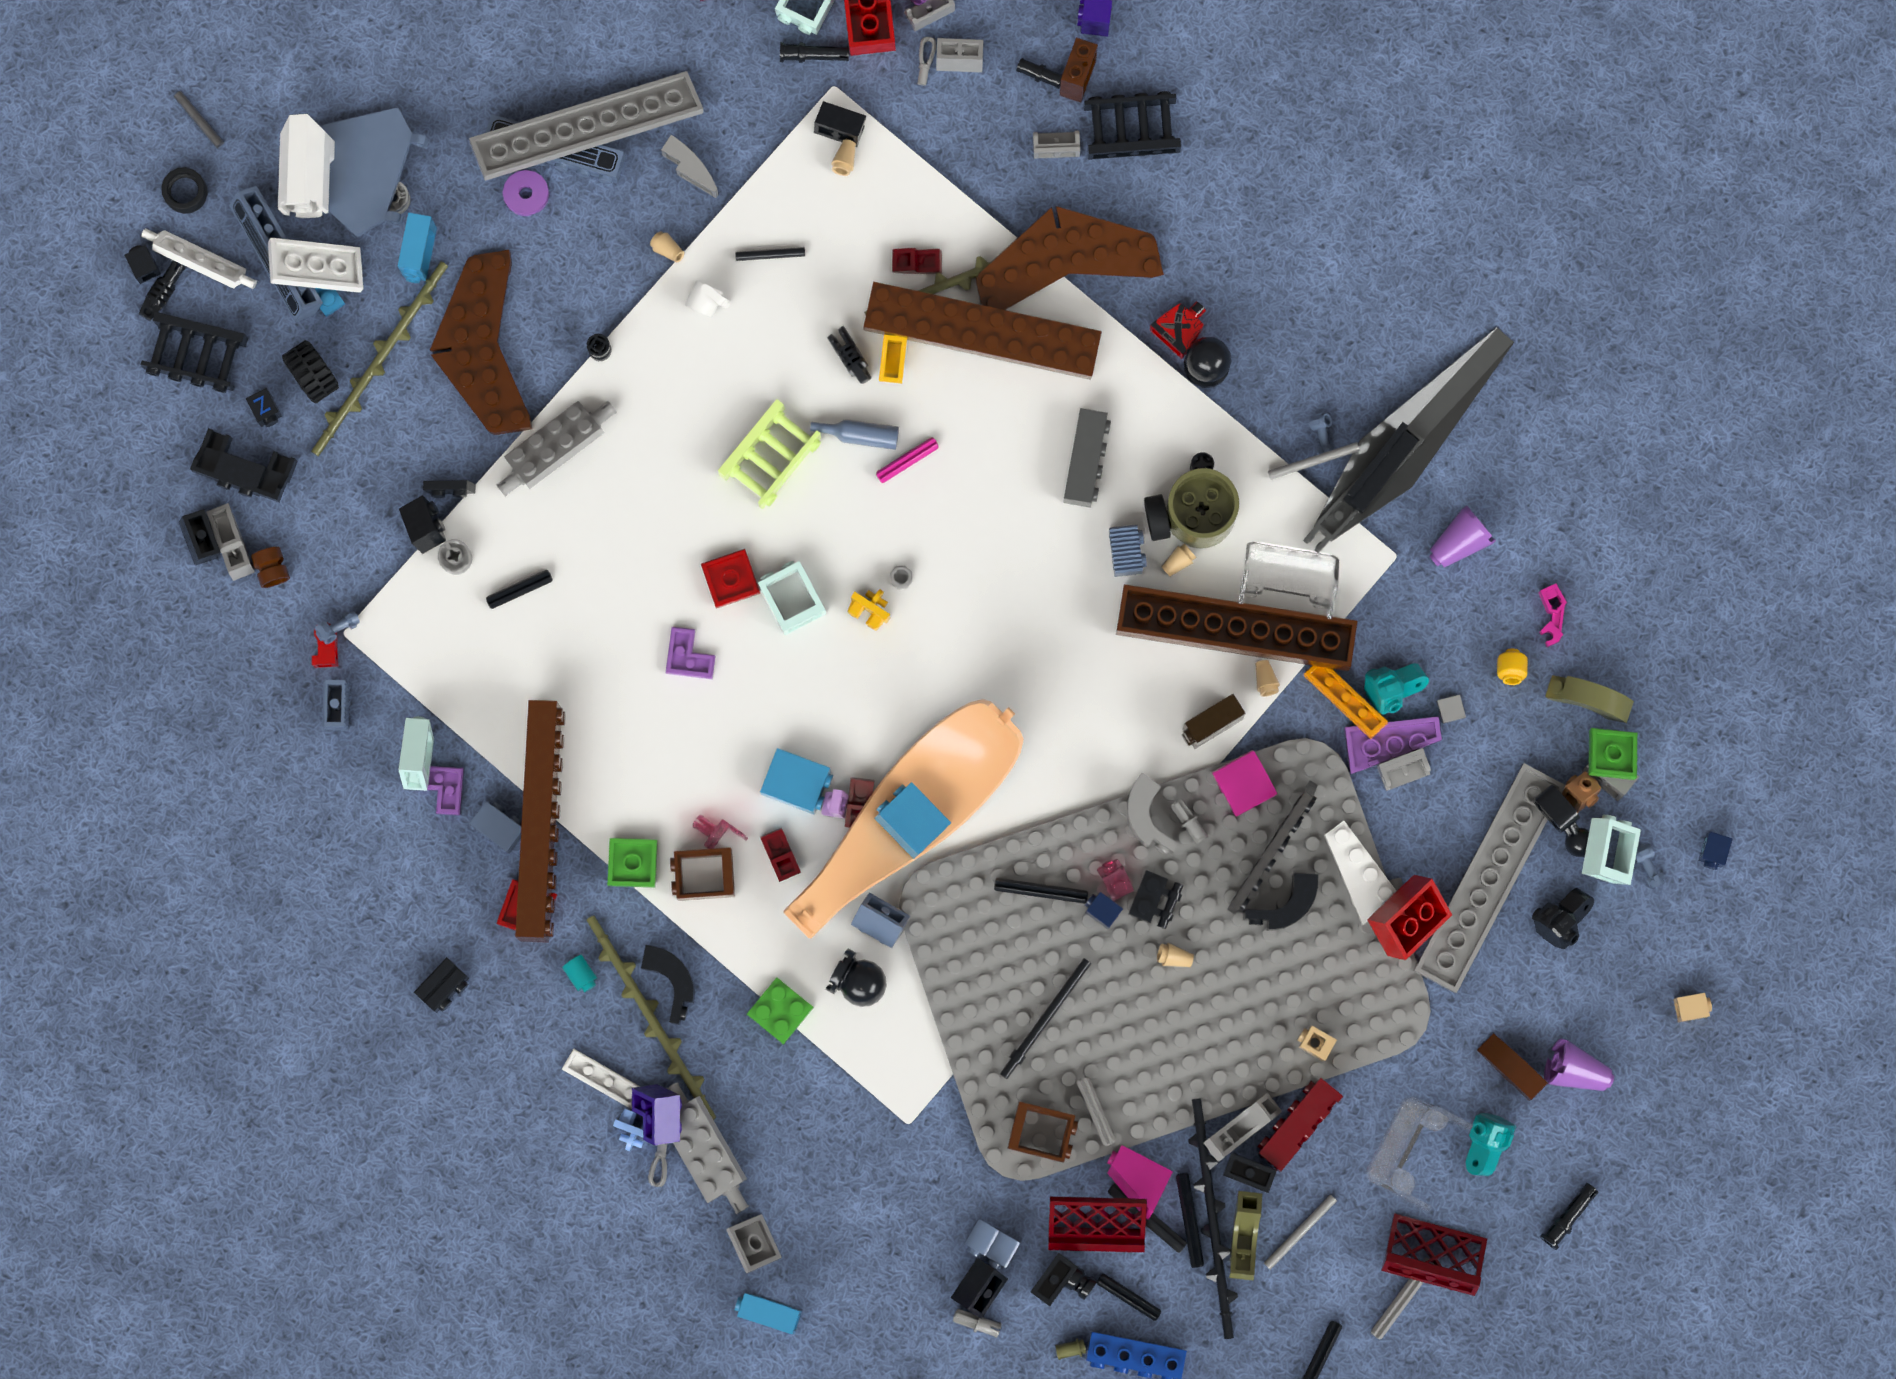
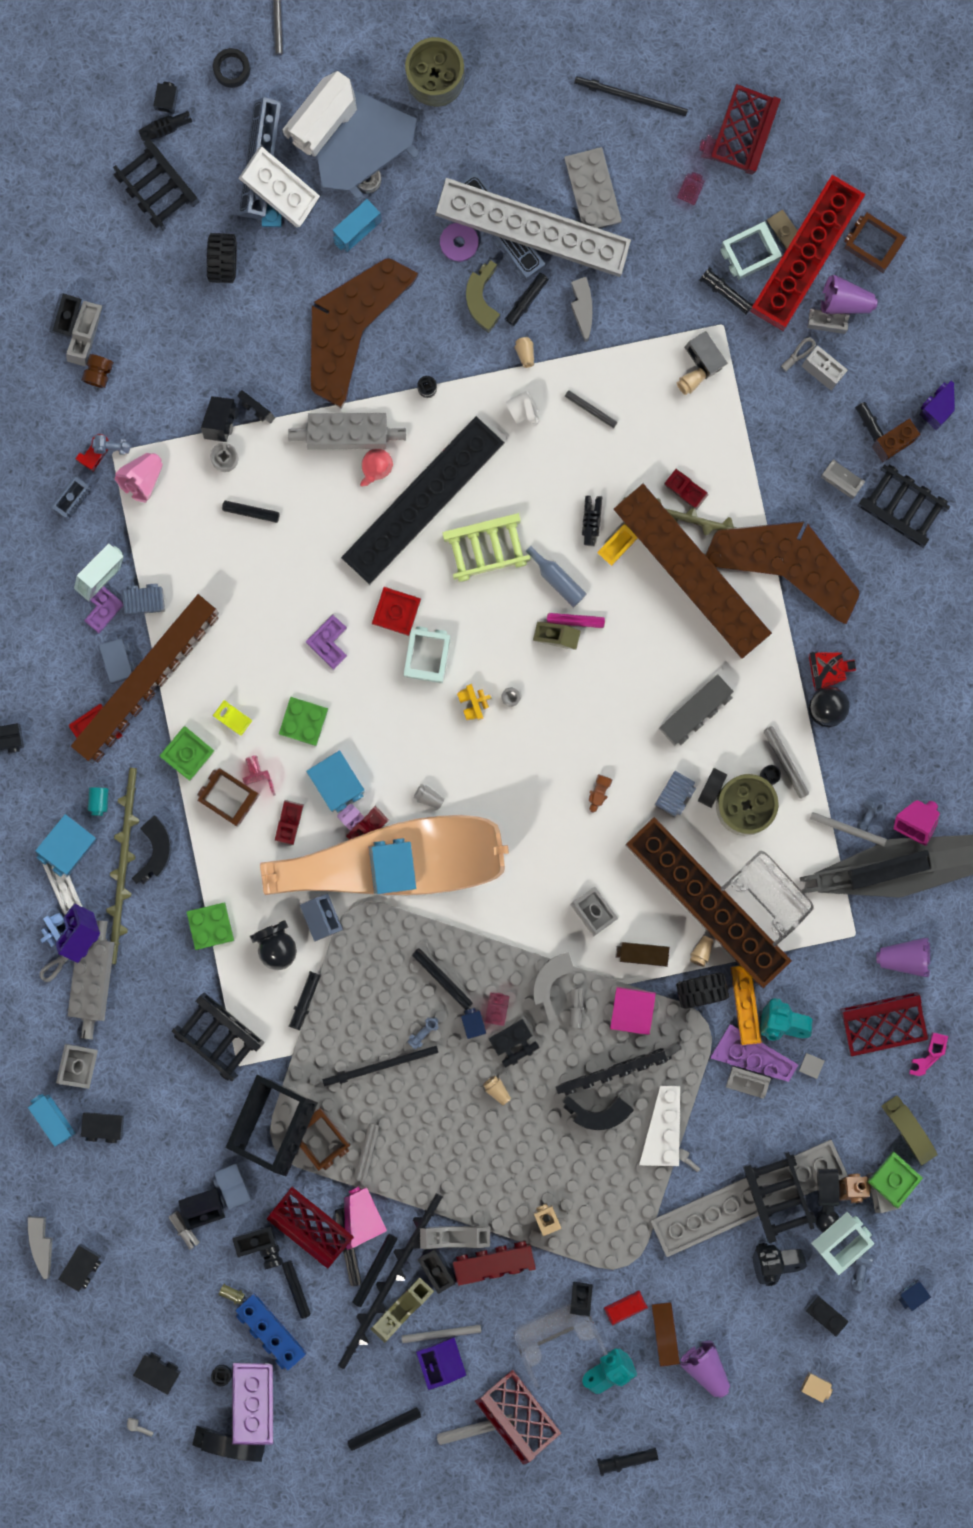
camera: 40 degrees right, 5 degrees up
(198, 259) = (205, 123): white plate -> none
(240, 473) = (128, 300): black bracket -> none
(264, 408) = (173, 258): black brick -> none
(375, 35) = (440, 57): none -> olive brick
(376, 368) = (268, 287): olive plant -> none
(387, 635) = (140, 476): none -> bright pink cone
(479, 748) = (143, 600): none -> sand blue brick
(582, 1040) = (65, 846): none -> dark azure brick
(592, 240) = (478, 308): none -> olive arch
(606, 457) = (375, 466): none -> coral hat
(614, 51) = (593, 188): none -> light grey plate
(630, 205) = (521, 306): none -> black pin
(651, 796) = (233, 718): none -> neon yellow bracket
(676, 456) = (422, 500): none -> black plate
(720, 749) = (303, 721): none -> bright green plate
(822, 1283) = (102, 1126): none -> black brick
(880, 1089) = (236, 1030): none -> black fence
(895, 729) = (428, 797): none -> light grey cone
(900, 486) = (557, 635): none -> olive slope
(925, 1012) = (304, 1001): none -> black pin
(957, 1164) = (249, 1117): none -> black window
(1054, 607) = (598, 796): none -> dark orange piece
(1063, 942) = (431, 1024): none -> sand blue bar
(1135, 719) = (594, 911): none -> light grey slope
(1178, 560) = (705, 827): tan cone -> none
(1207, 443) = (786, 762): none -> light grey axle
(1295, 713) = (702, 990): none -> black tyre
(1321, 1259) = (441, 1363): none -> dark purple slope
(1372, 404) = (918, 821): none -> dark pink torso
(1407, 1094) = (581, 1299): none -> black plate
(1409, 917) = (673, 1184): red brick -> none
(1454, 1072) = (625, 1307): none -> red tile
(1471, 607) = (884, 1007): none -> dark red fence
(1496, 863) = (759, 1193): none -> black fence
(1512, 666) = (874, 1069): yellow head -> none
(1648, 931) = (826, 1315): none -> black brick

